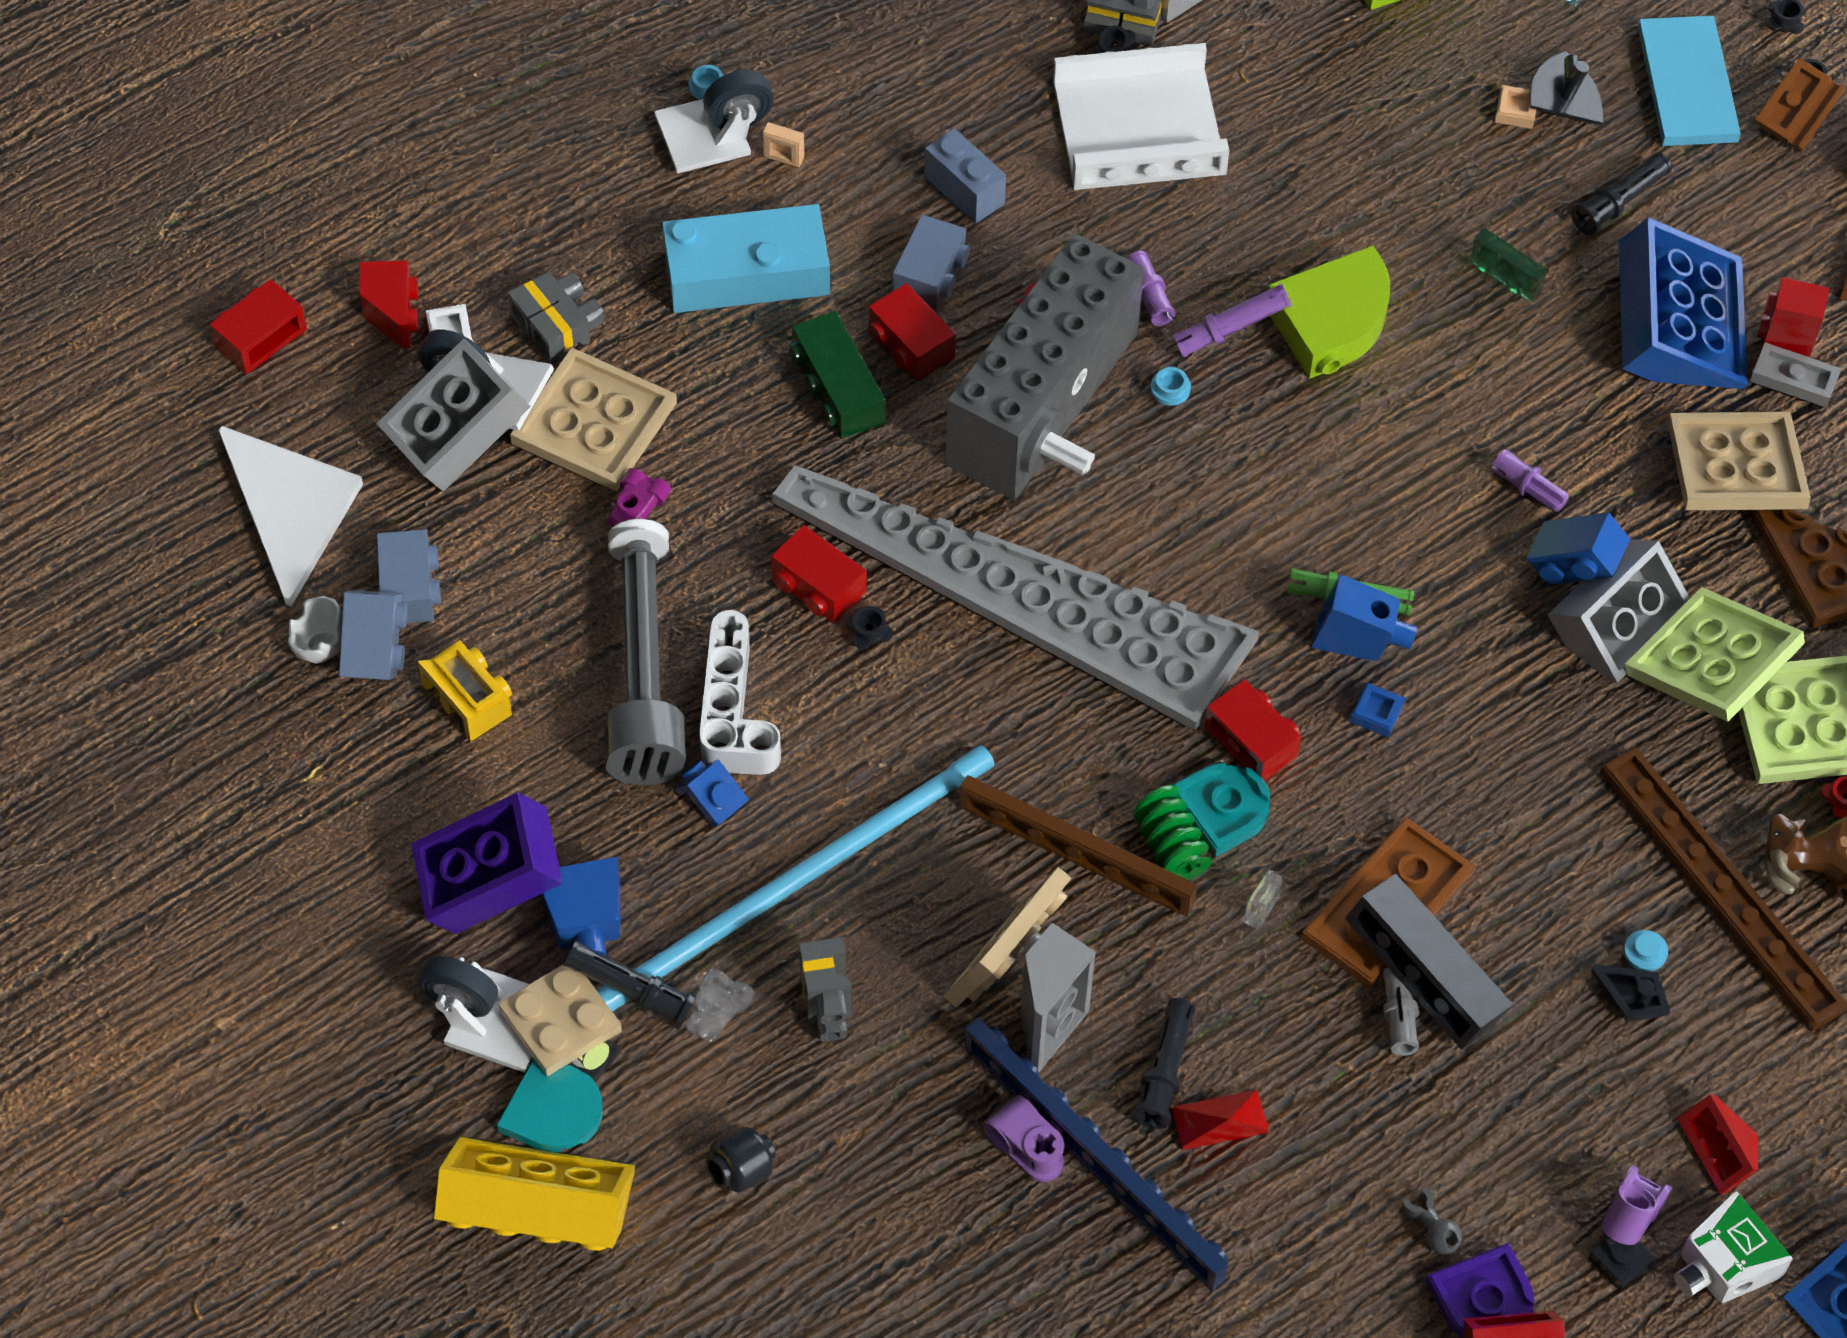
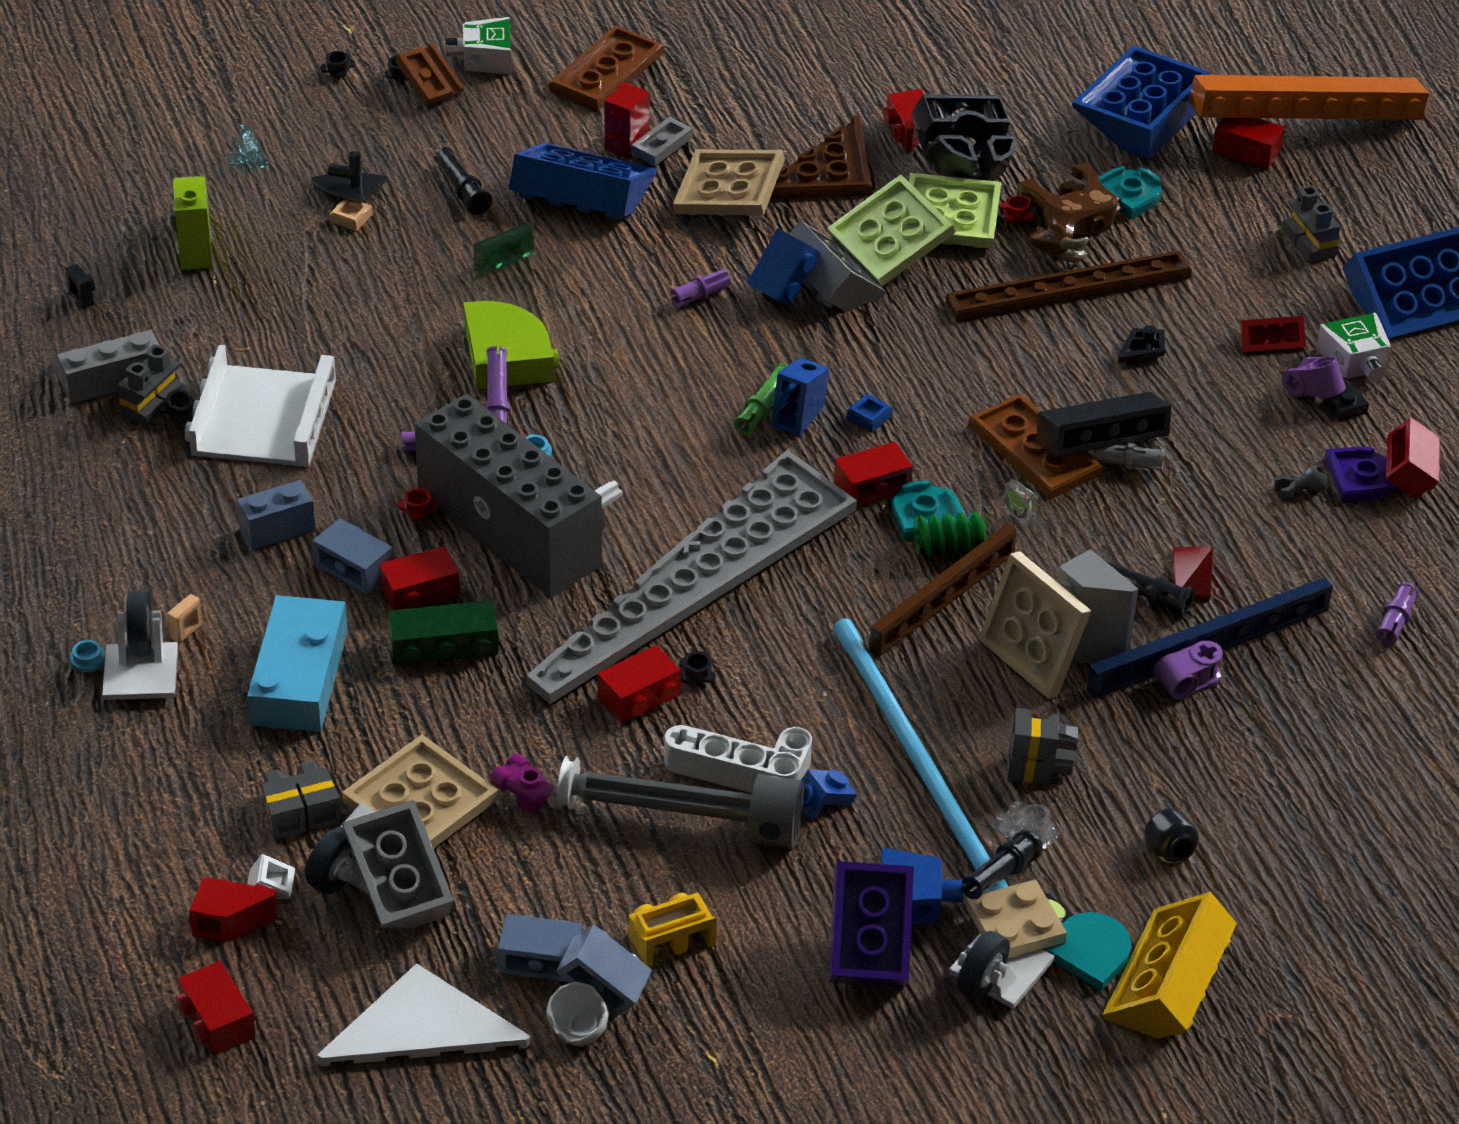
camera: 75 degrees left, 15 degrees down
(1645, 950) = (1112, 331): medium azure plate -> none
(1688, 80) = (371, 125): medium azure tile -> none

